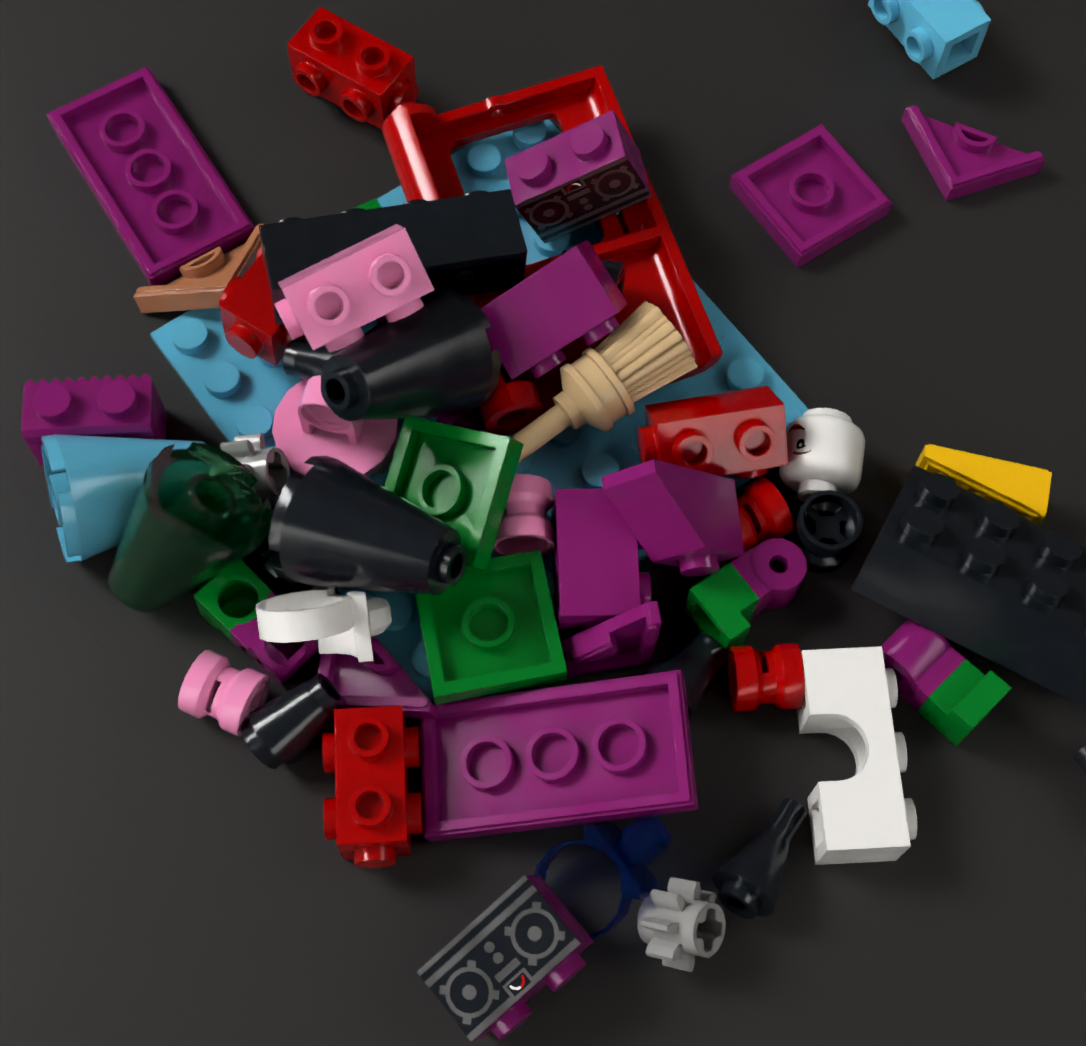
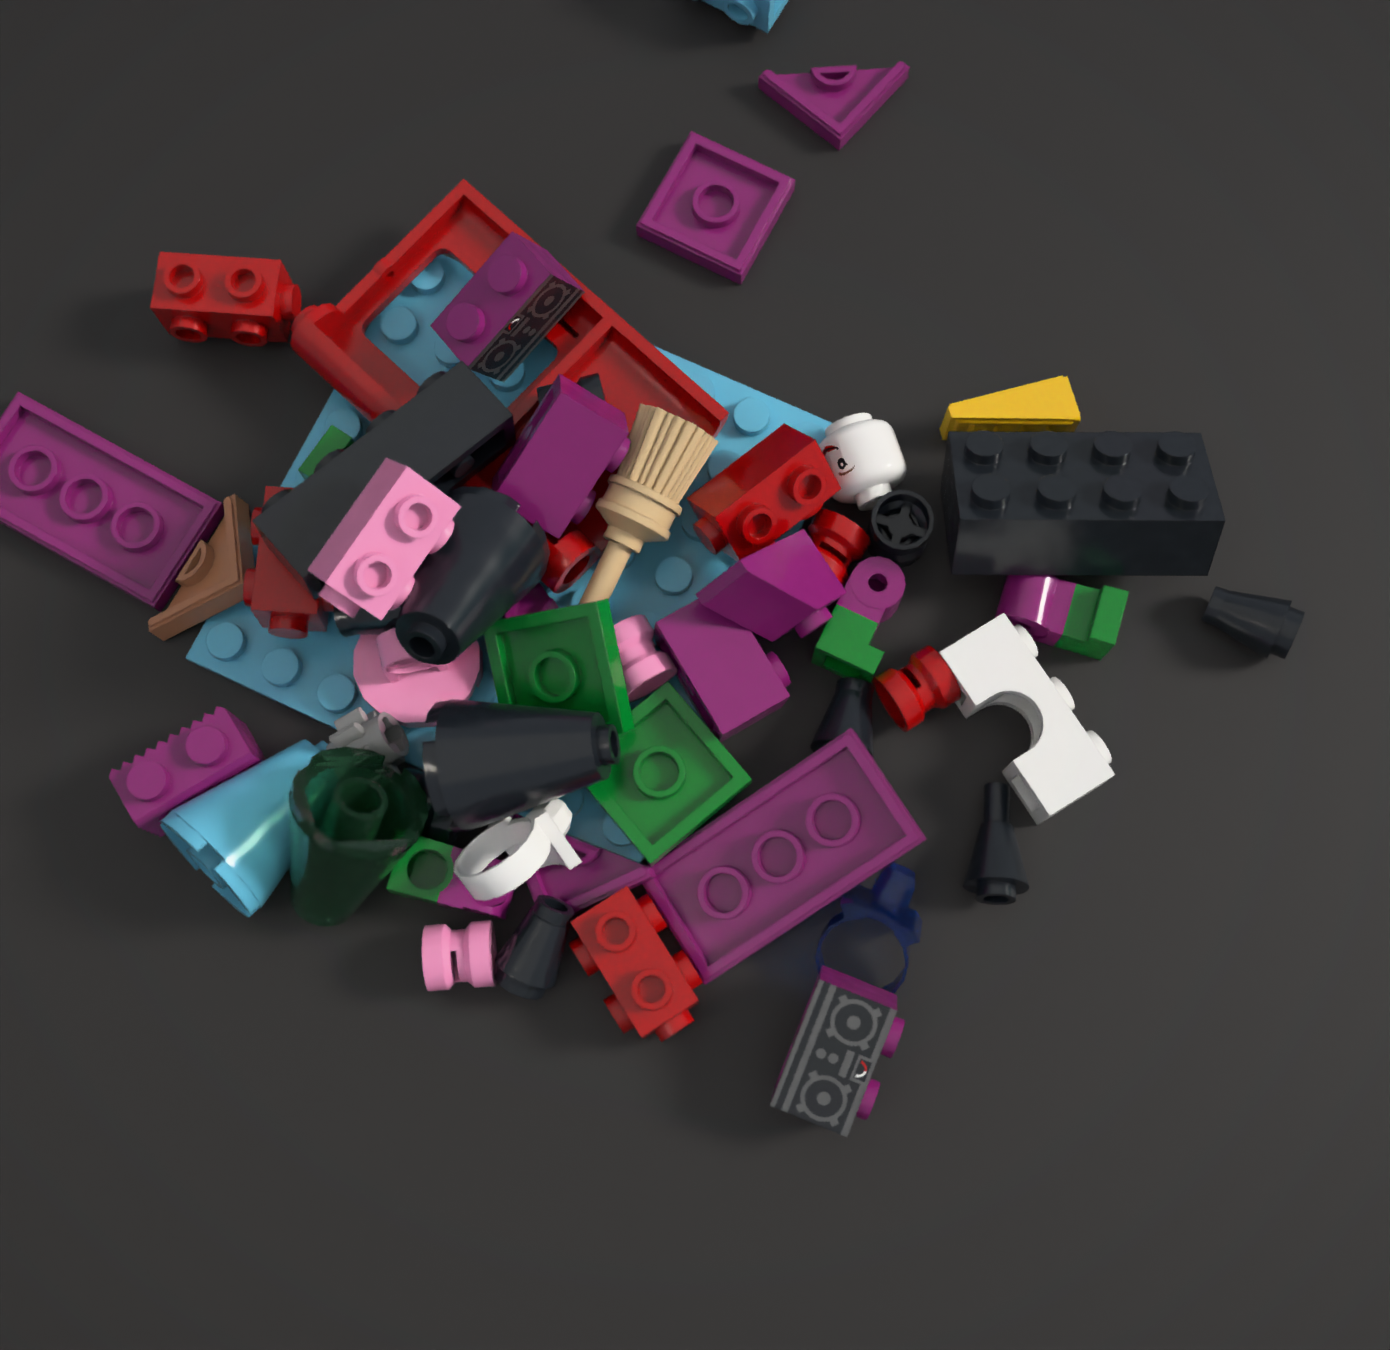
camera: 25 degrees left, 10 degrees up
(615, 643) = (776, 728): magenta tile -> none
(681, 924) = (960, 940): light grey gear -> none

